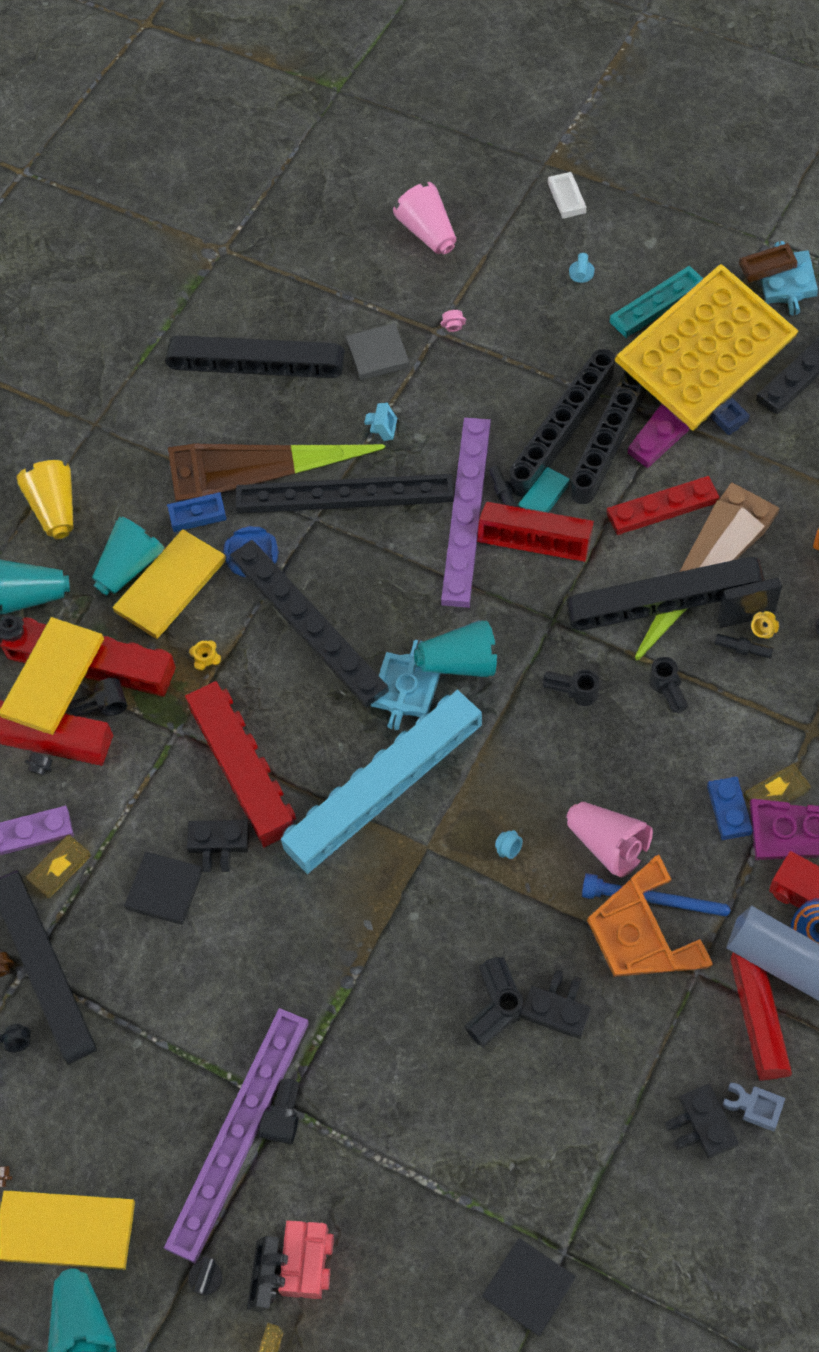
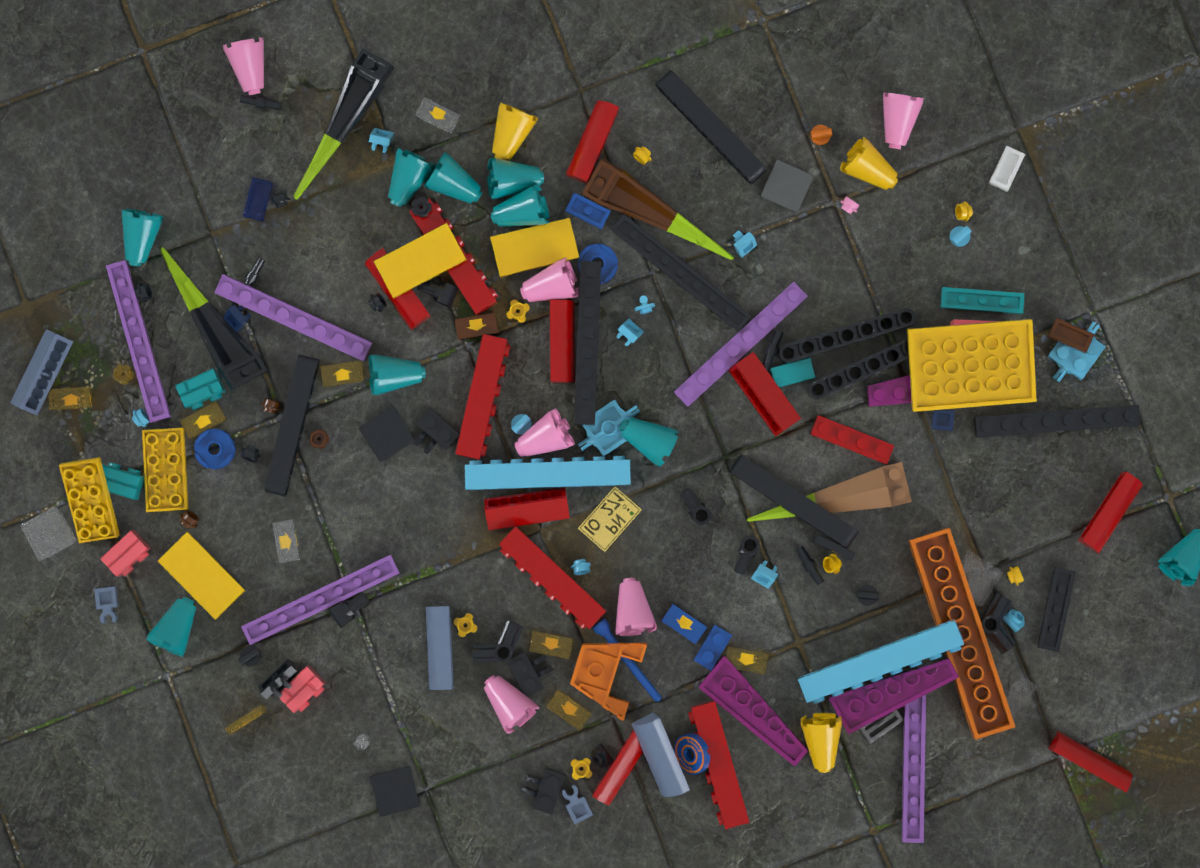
camera: 35 degrees right, 25 degrees up
(83, 539) = (511, 177): none -> teal cone
(84, 948) = (324, 439): none -> reddish brown plate
(115, 815) = (393, 373): none -> teal cone
(140, 1102) = (286, 541): none -> clear tile
(145, 452) = (592, 141): none -> red brick
(169, 704) = (476, 326): none -> reddish brown tile
(207, 427) = (642, 155): none -> yellow plate
(217, 597) = (551, 283): none -> bright pink cone
(278, 646) = (562, 341): none -> red brick
(308, 756) = (521, 424): none -> medium azure plate
(335, 546) = (644, 308): none -> medium azure plate
(342, 580) = (630, 331): none -> medium azure tile
(345, 742) = (545, 436): none -> bright pink cone
(368, 289) = (820, 134): none -> orange plate
(392, 834) = (526, 508): none -> red brick
(429, 1065) = (439, 648): none -> sand blue brick
(434, 1007) = (459, 622): none -> yellow plate
(434, 1260) = (362, 741): none -> clear plate
(438, 274) = (869, 165): none -> yellow cone
(487, 880) = (552, 577): none -> red brick
(492, 775) = (609, 519): none -> clear yellow sticker
(553, 955) = (551, 644): none -> clear yellow tile
(563, 250) = (963, 211): none -> yellow plate
(568, 1053) = (509, 703): none -> bright pink cone
(641, 1008) = (568, 710): none -> clear yellow tile
(675, 809) = (684, 624): none -> blue tile
(709, 690) = (764, 575): none -> medium azure tile
(720, 1051) = (577, 773): none -> yellow plate
(727, 1027) = (600, 756): none -> black plate

